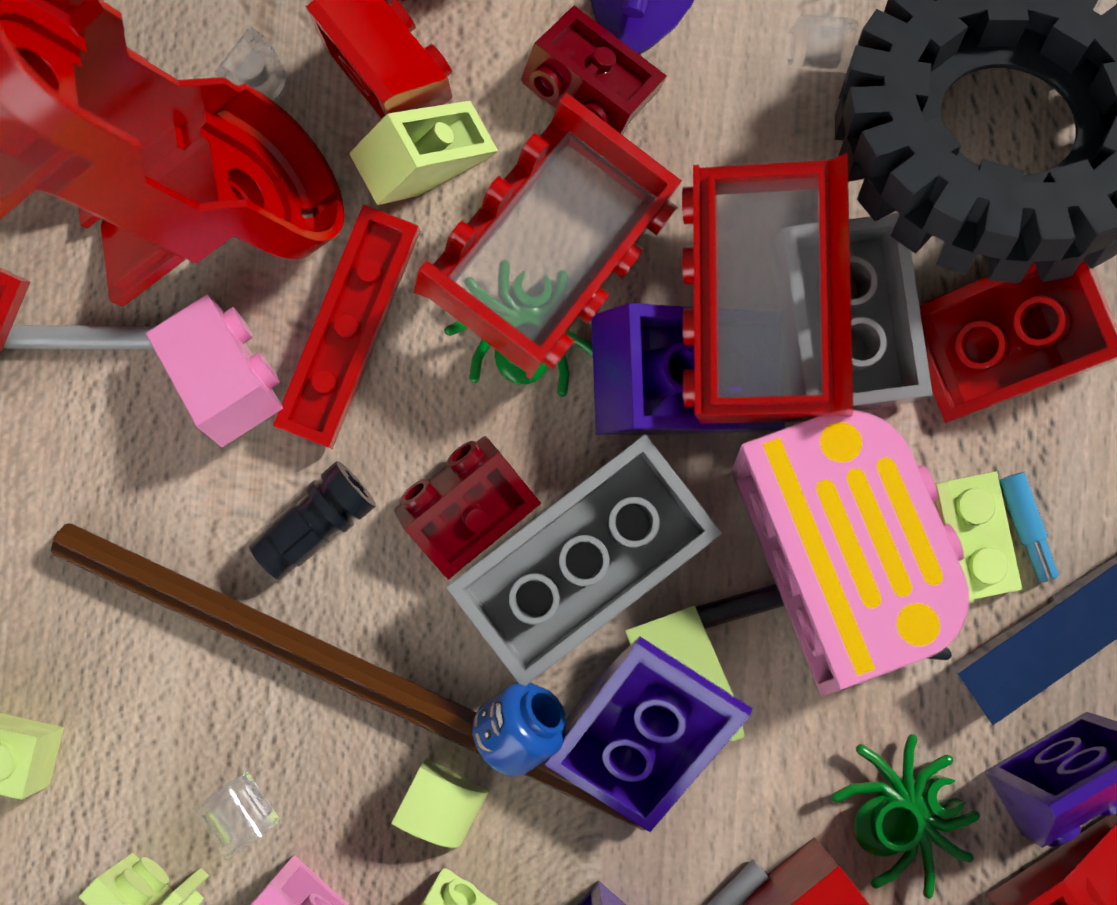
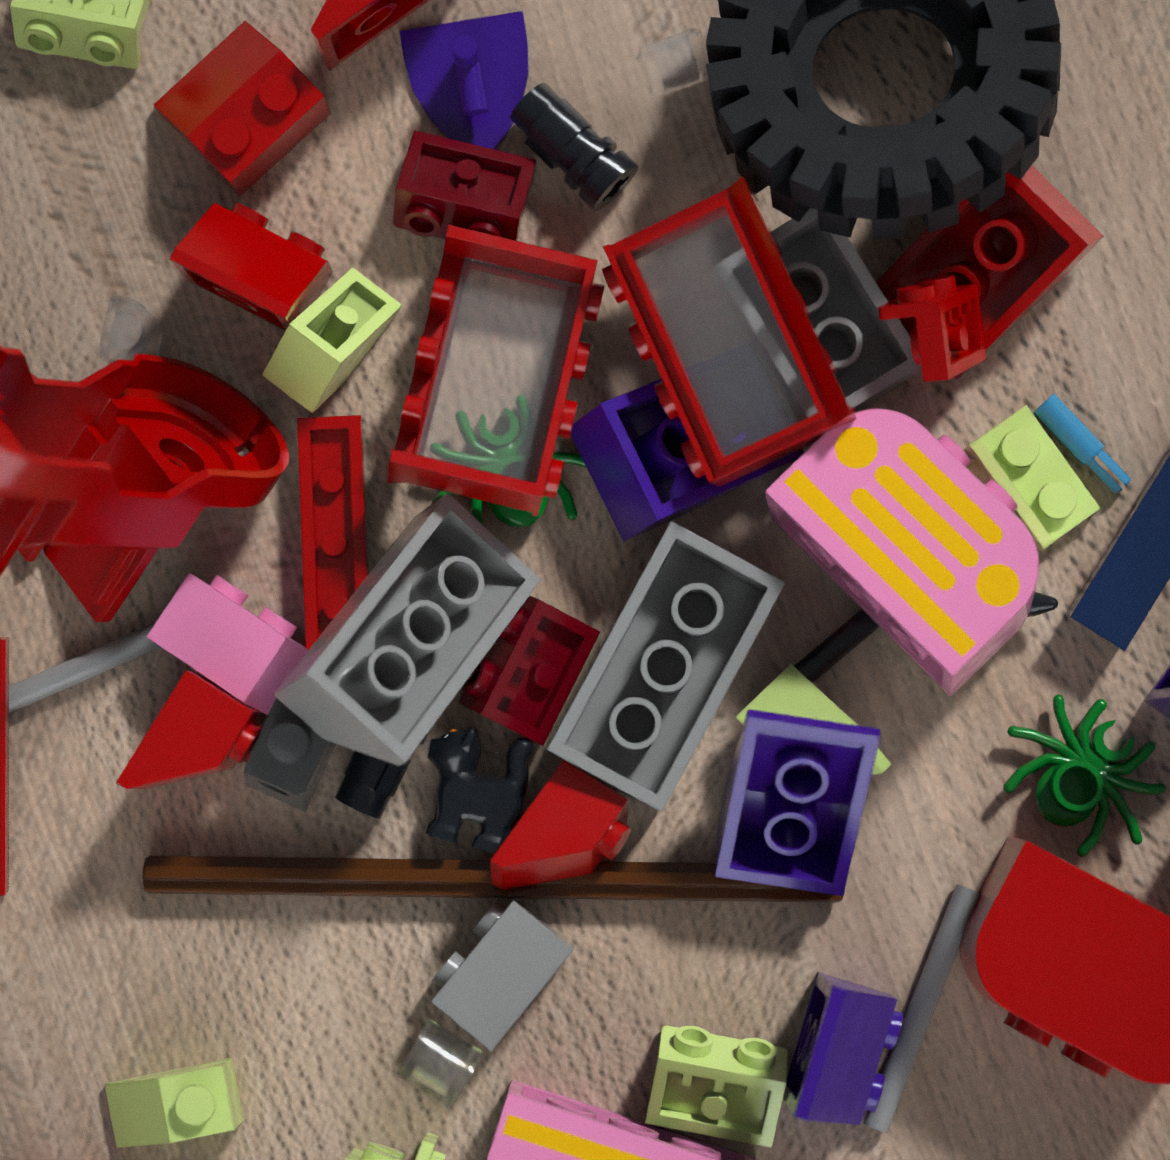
camera: 20 degrees left, 0 degrees up
(143, 434) = (193, 736): none -> red slope
(237, 479) = (287, 758): none -> dark grey torso
(323, 762) = (501, 972): none -> light grey brick
(367, 434) = (409, 635): none -> light grey slope
(368, 598) = (473, 797): none -> black animal
(429, 664) = (562, 832): none -> red slope
(440, 806) = (633, 965): yellowish green brick -> none
(519, 728) = (675, 851): blue head -> none
(702, 75) = (568, 141): none -> black axle
(967, 372) = (947, 326): none -> red bracket

